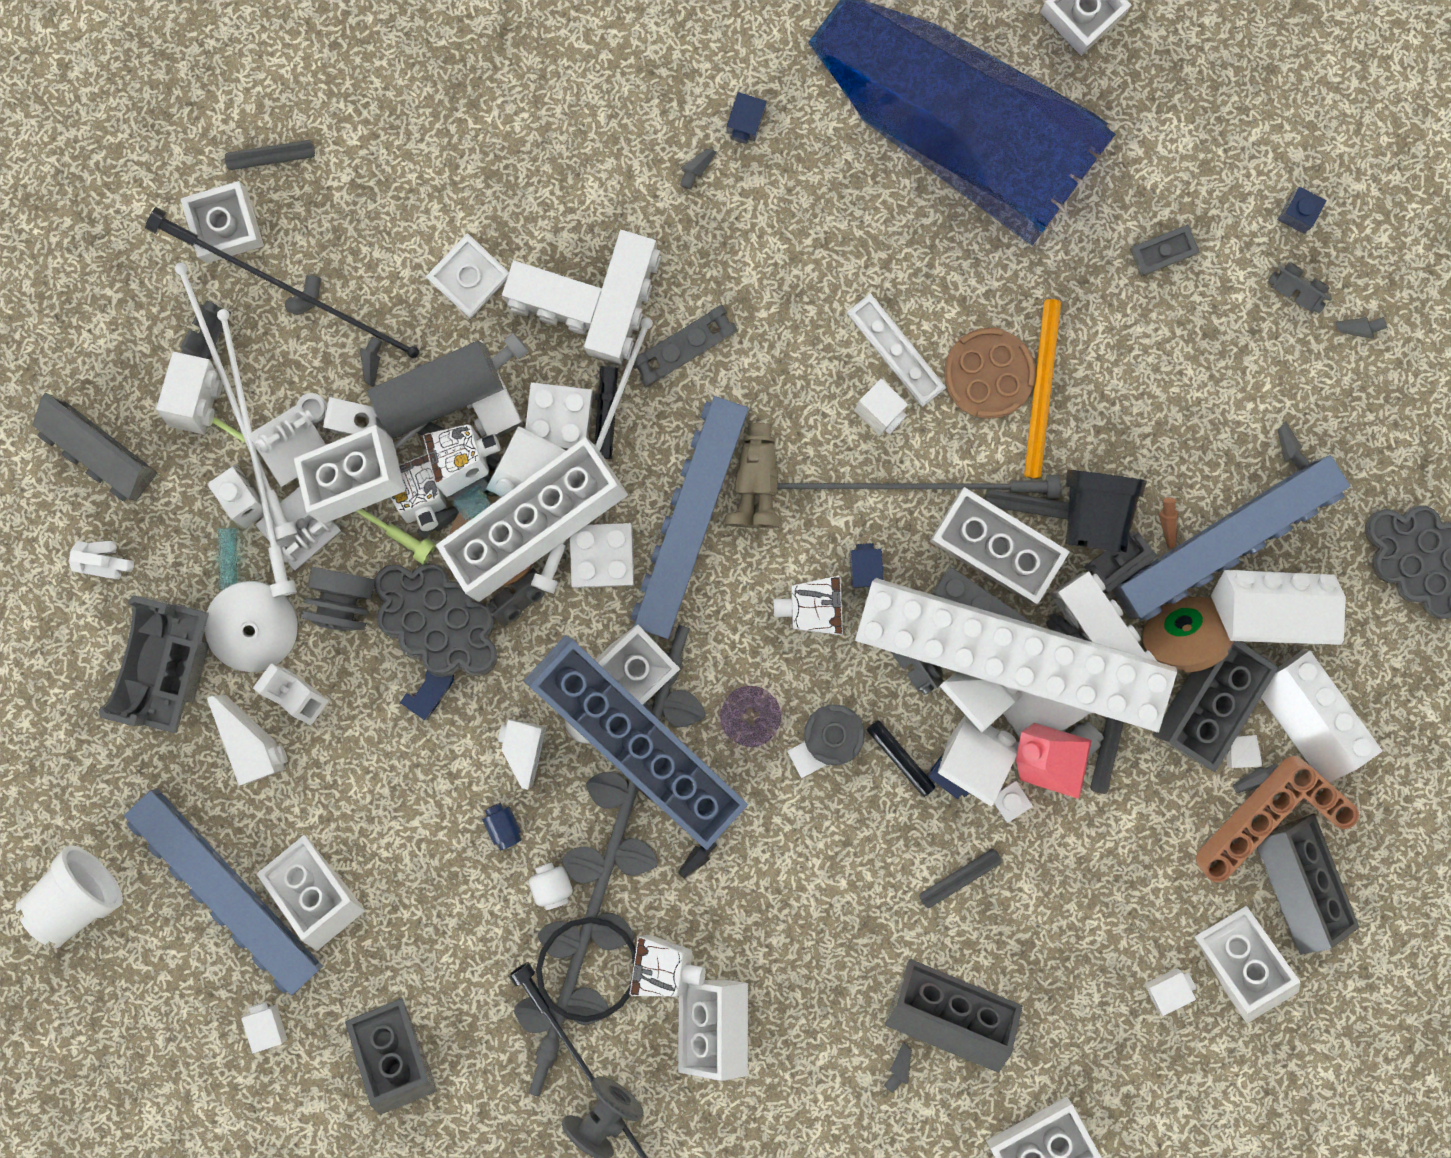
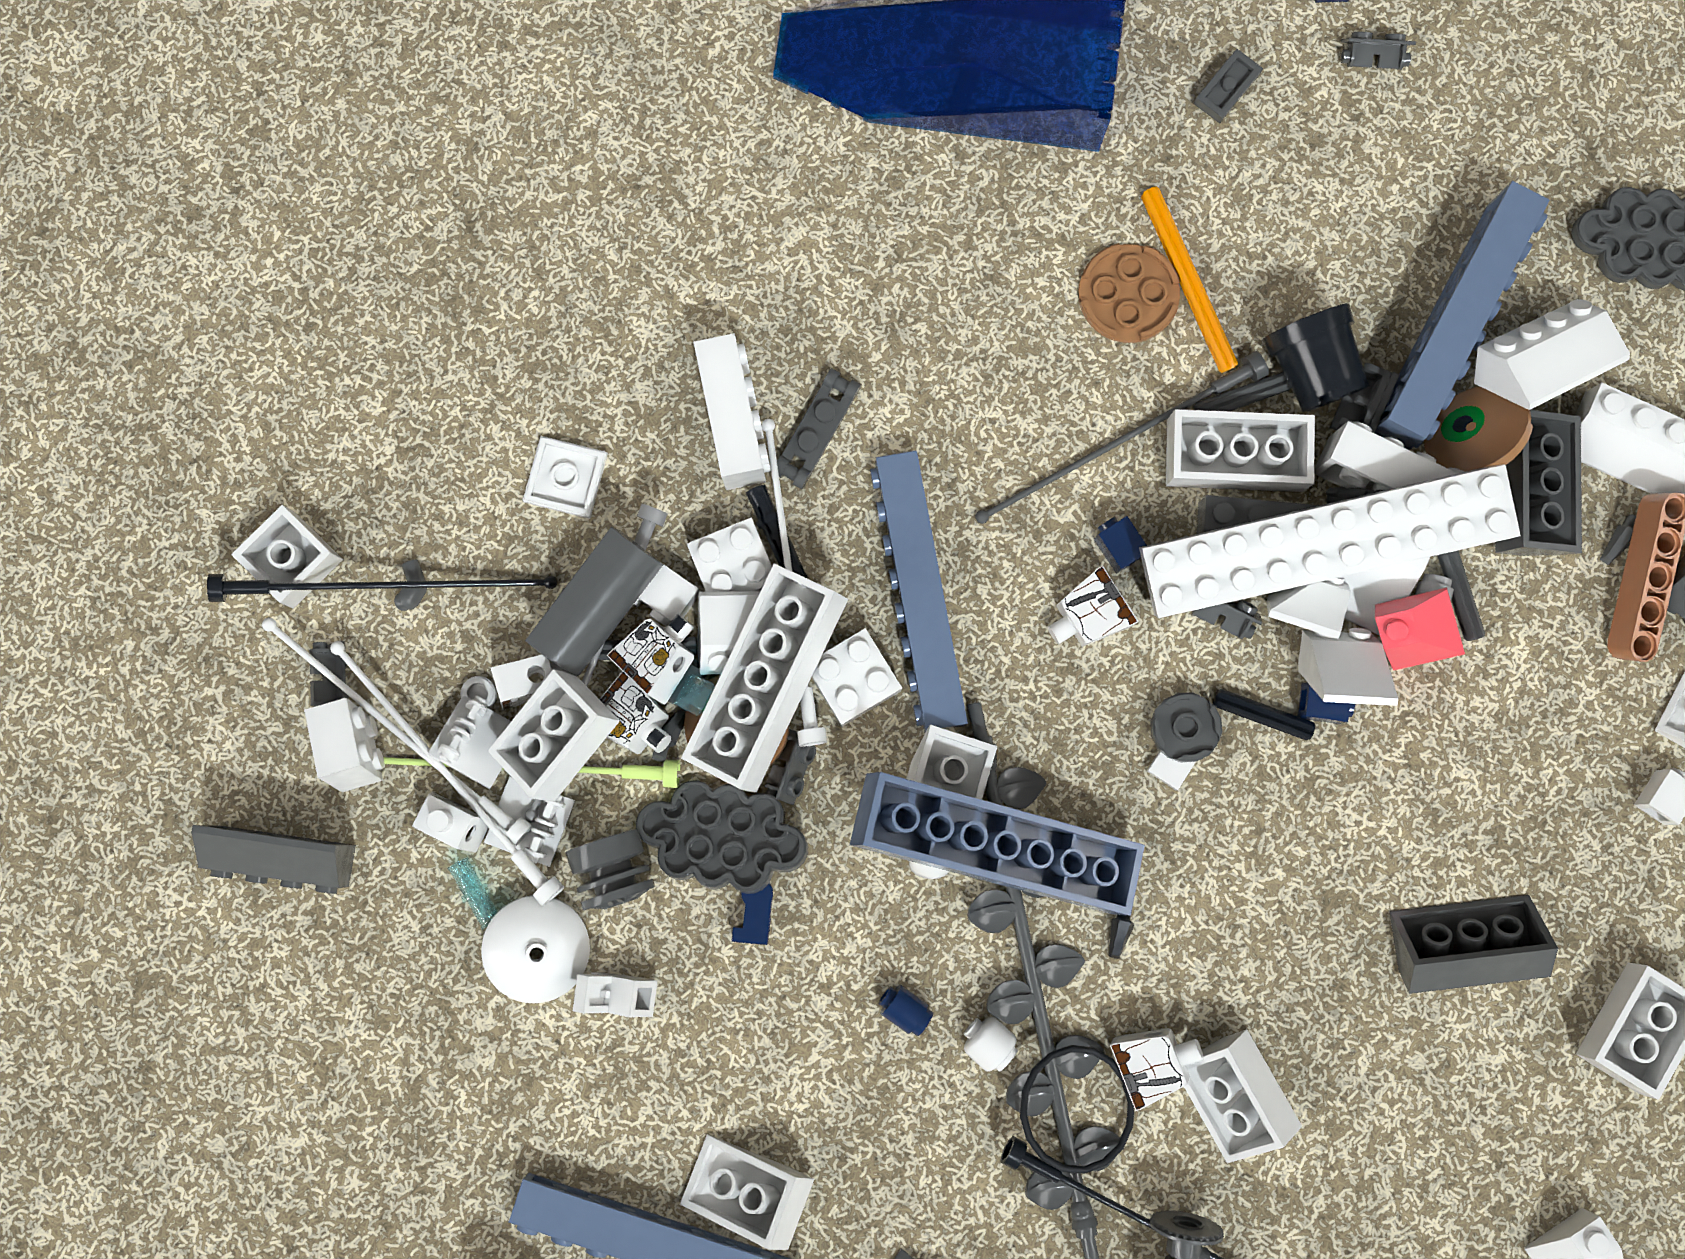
camera: 30 degrees left, 5 degrees down
(89, 559) = (333, 972): white rock -> none
(159, 665) = (461, 1043): dark grey piece -> none
(248, 746) = (599, 1074): white slope -> none
(269, 155) = (300, 467): dark grey axle -> none
(370, 360) = (512, 613): dark grey bar -> none
(522, 749) = (882, 917): white slope -> none
(550, 297) = (661, 448): white brick -> none
(696, 167) = (731, 252): dark grey bar -> none
(740, 730) = (1111, 756): clear purple plate -> none
(745, 118) = (754, 177): dark blue brick -> none
(756, 476) = (962, 514): dark tan piece -> none
(882, 408) = (1051, 376): white brick -> none
(896, 350) = (1026, 320): white tile -> none
(900, 1069) = (1447, 1030): dark grey bar -> none
(960, 878) = (1393, 801): dark grey axle -> none
(1012, 802) = (1407, 696): white plate -> none
(1169, 521) = (1385, 338): nougat bar -> none
(1244, 752) = (1596, 520): white slope -> none
(1291, 446) = (1458, 204): dark grey bar -> none
(1362, 326) = (1456, 56): dark grey bar -> none

